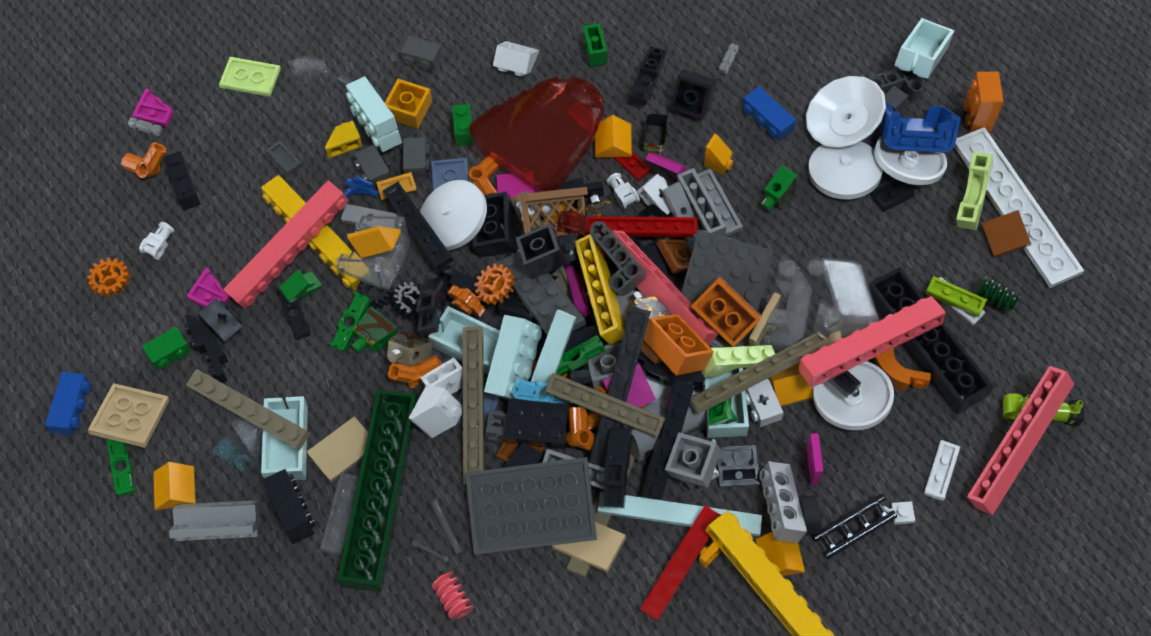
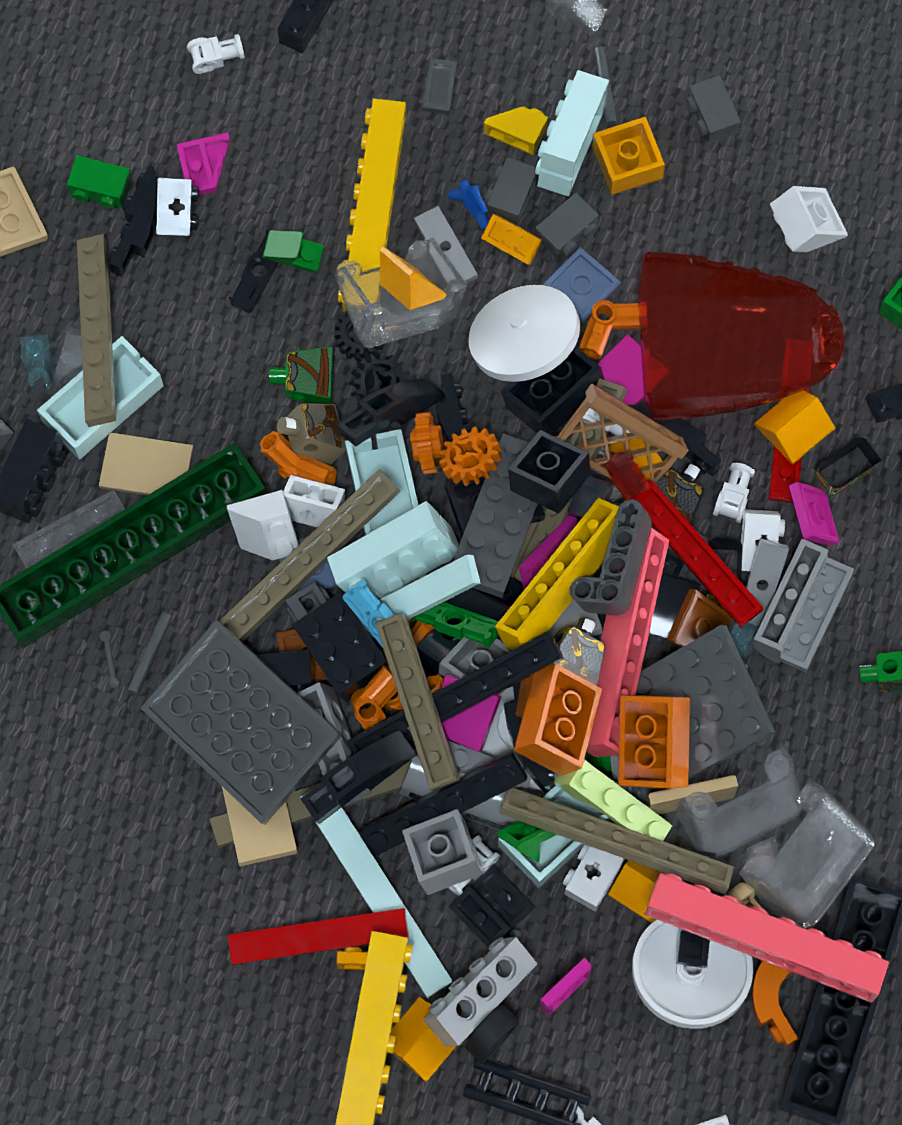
camera: 50 degrees right, 10 degrees up
(108, 277) = (128, 57): orange gear -> none
(286, 244) = (325, 191): coral brick -> none
(345, 334) = (314, 336): green piece -> none
(418, 225) = (475, 307): black plate -> none
(451, 597) = (74, 725): coral piece -> none
(462, 121) = (660, 236): green brick -> none
(718, 155) = (880, 563): light orange slope -> none

